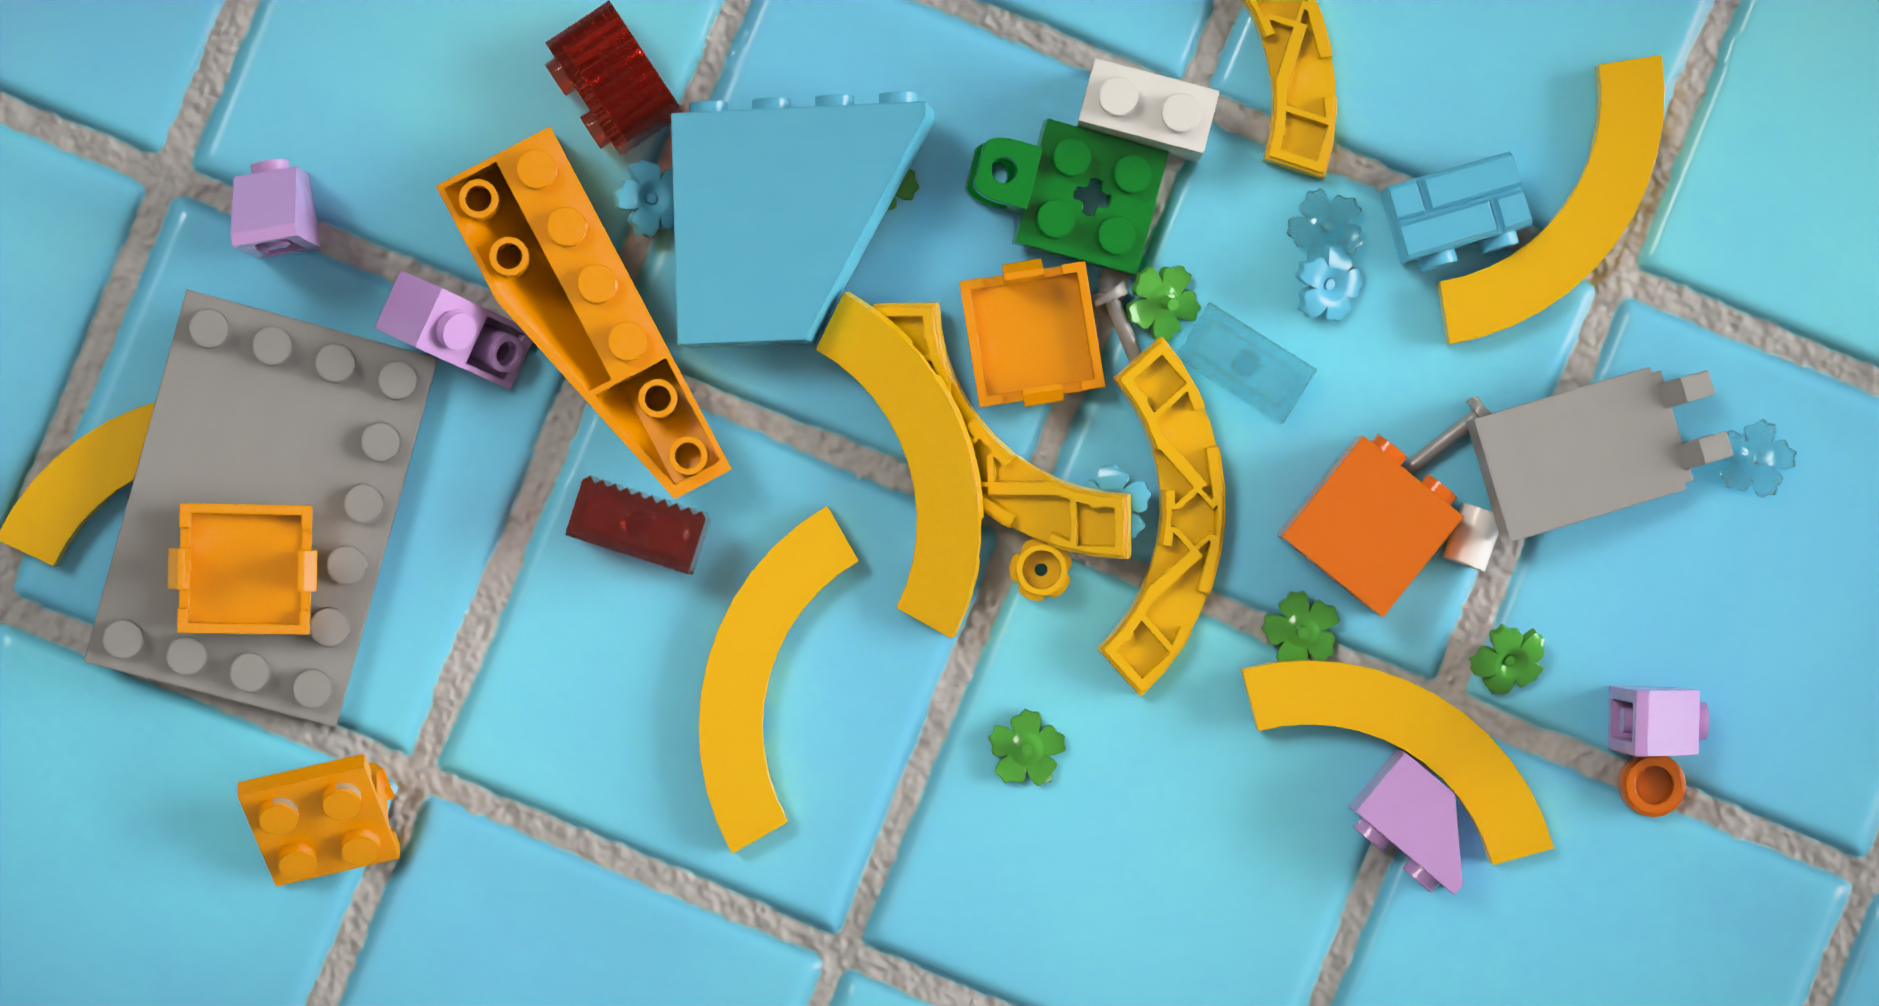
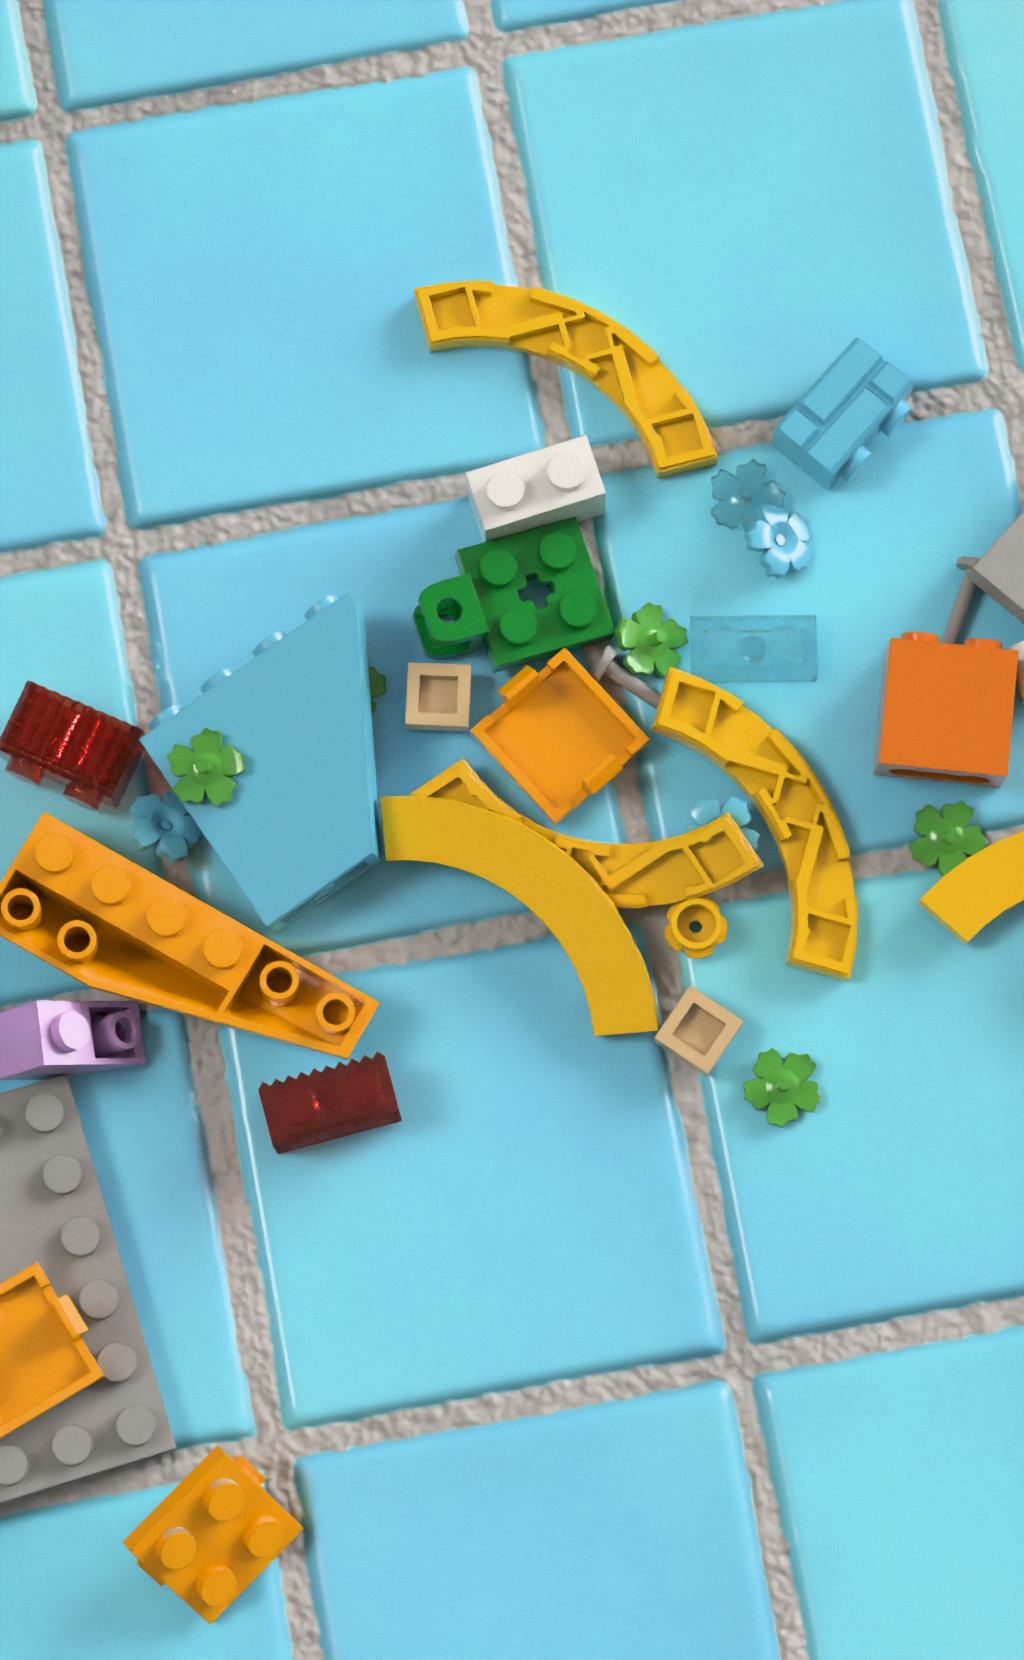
camera: 30 degrees left, 10 degrees down
(710, 177) = (206, 769): none -> bright green plant
(741, 669) = (496, 1175): yellow tile -> none
(950, 234) = (438, 697): none -> tan plate
(985, 659) = (698, 1031): none -> tan plate
(1587, 223) = (956, 360): yellow tile -> none

